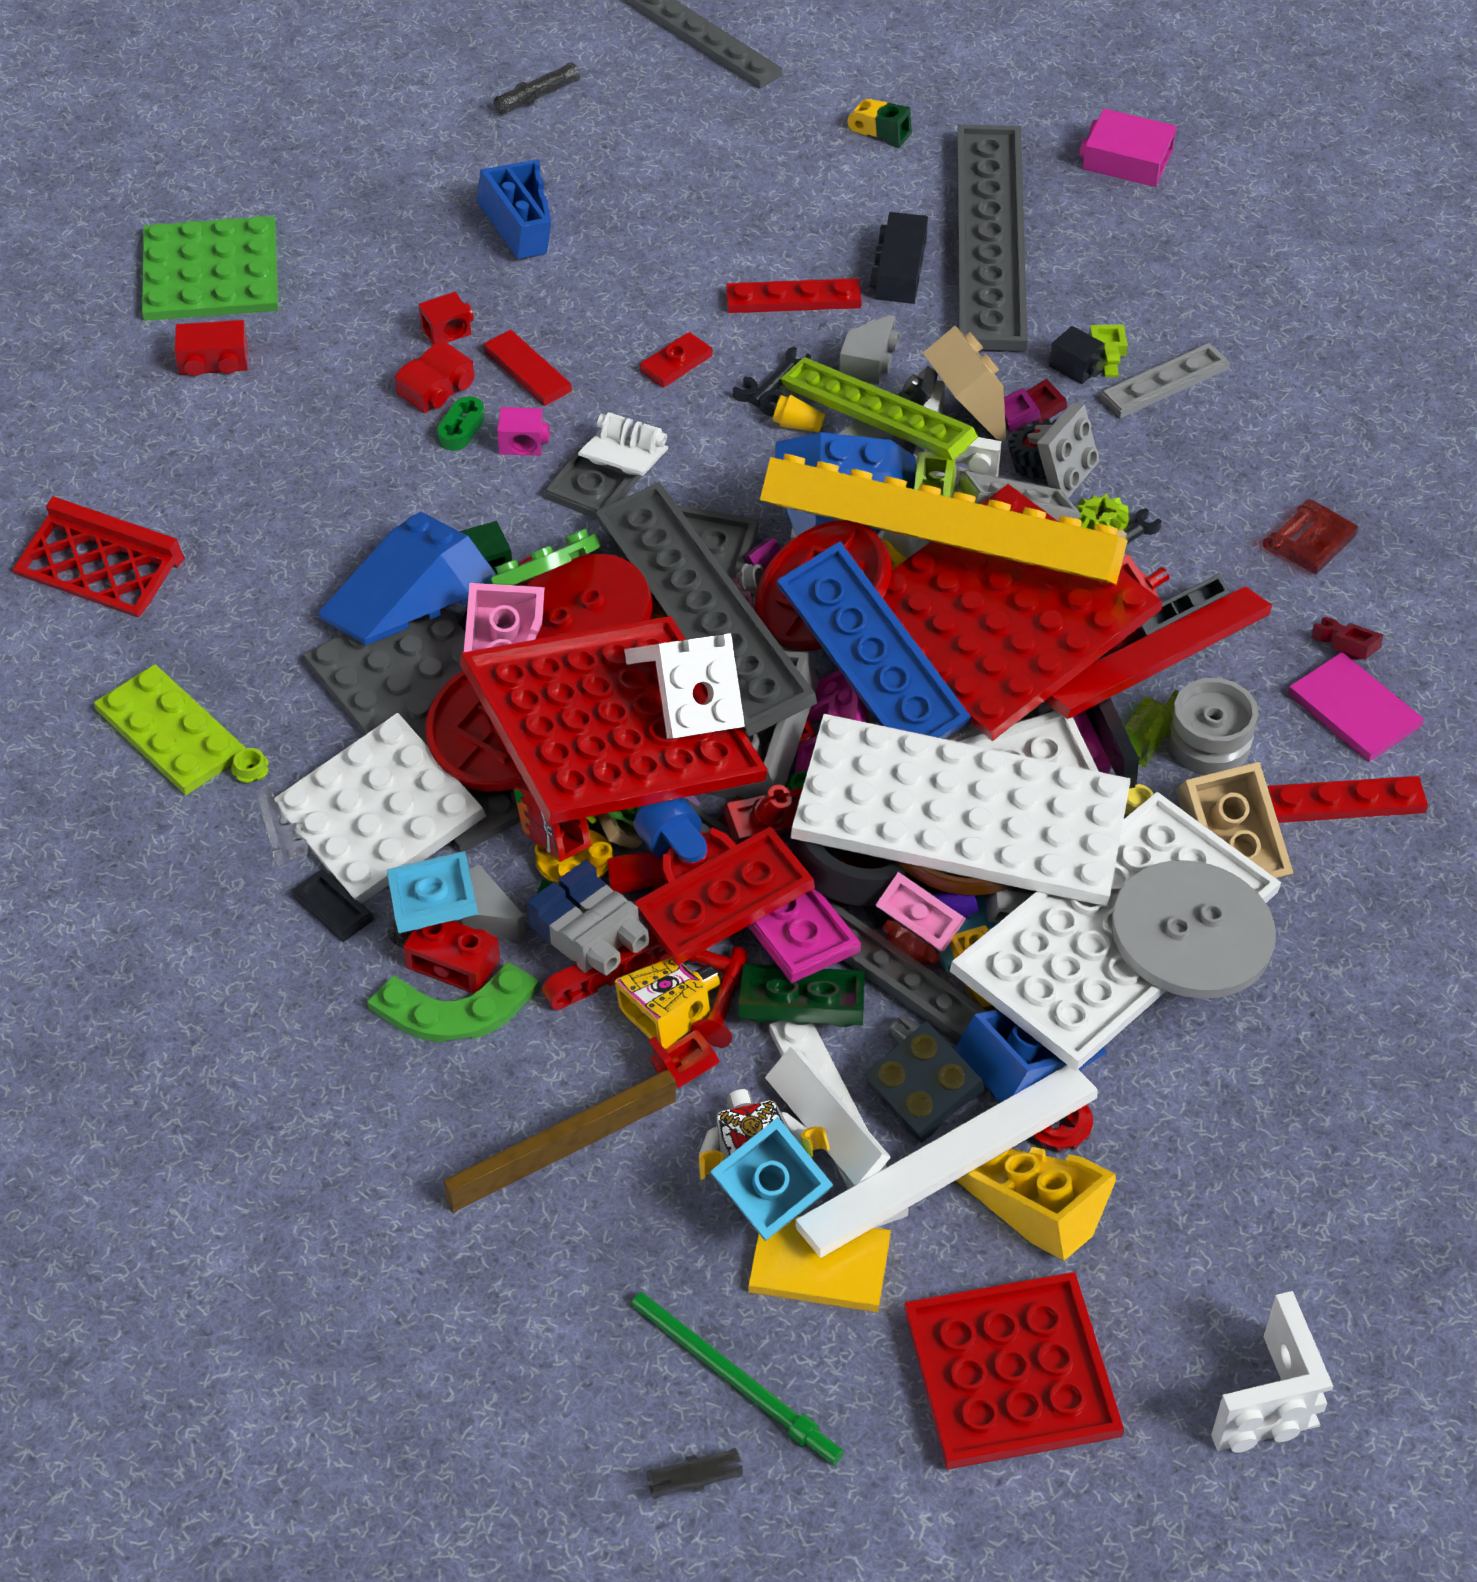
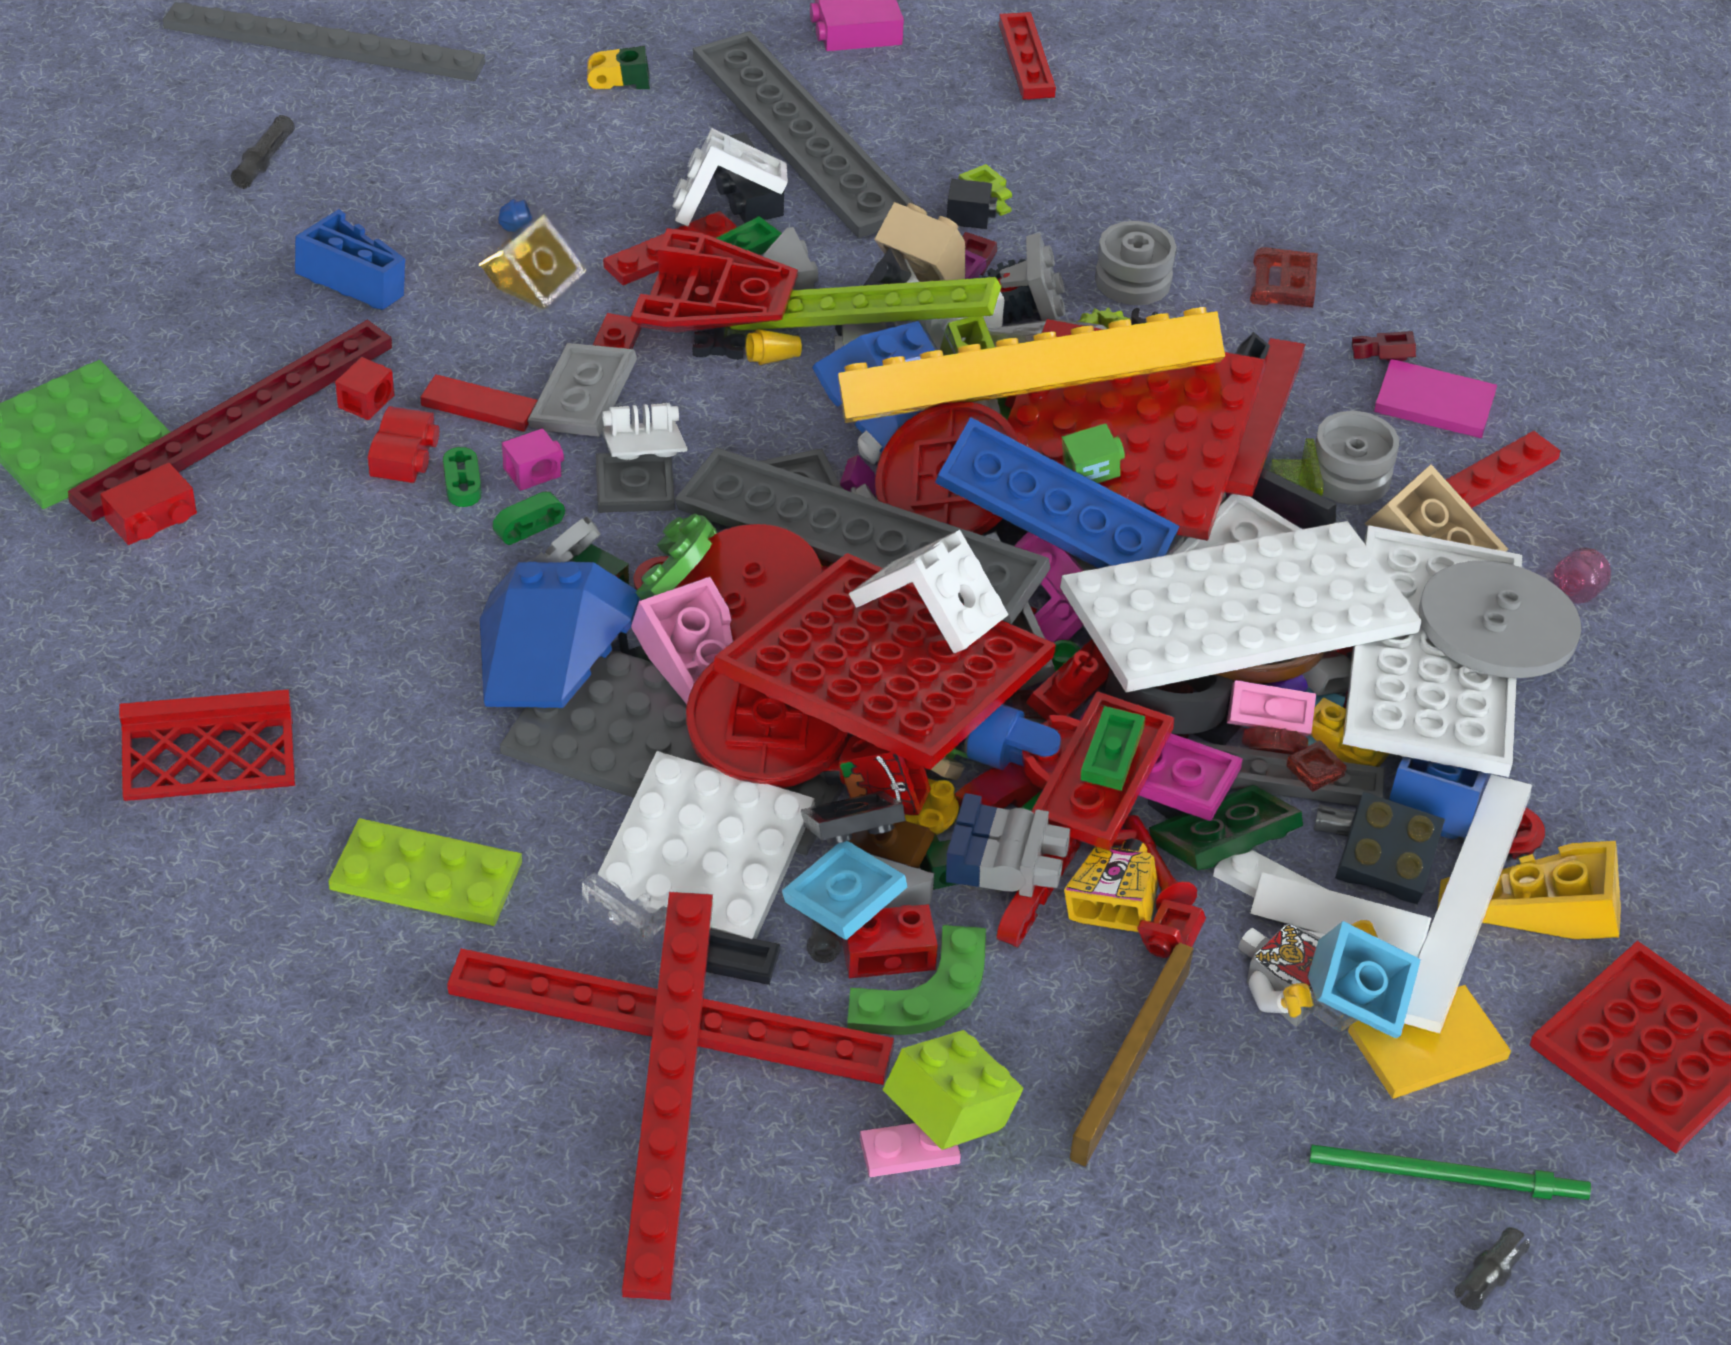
camera: 35 degrees left, 5 degrees down
(184, 988) = (668, 1099): none -> red plate
(246, 758) = (539, 859): lime plate -> none
(246, 933) = (632, 1010): none -> red plate
(331, 1124) = (903, 1150): none -> bright pink plate
(343, 300) = (238, 414): none -> dark red plate
(386, 1094) = (952, 1089): none -> lime brick
(476, 513) = (571, 542): none -> light grey plate
(479, 478) = (528, 517): none -> green beam
(487, 835) = (841, 818): none -> black plate
(521, 872) = (903, 844): none -> reddish brown plate
(612, 387) = (581, 388): none -> light grey tile
(663, 266) = (533, 264): none -> clear yellow slope
(687, 219) = (514, 215): none -> blue plate
(732, 879) = (1112, 748): none -> green plate
(781, 343) = (712, 286): none -> red wedge
(849, 314) = (752, 236): none -> green plate
(879, 236) = (732, 155): none -> white bracket
(925, 980) = (1316, 766): none -> clear red tile
(935, 620) = (1093, 453): none -> bright green brick
(1164, 380) = (1054, 197): light grey tile -> none
(1175, 466) = (1135, 262): none -> light grey wheel
(1255, 238) = (1027, 55): none -> red plate
(1337, 927) = (1584, 572): none -> clear pink head

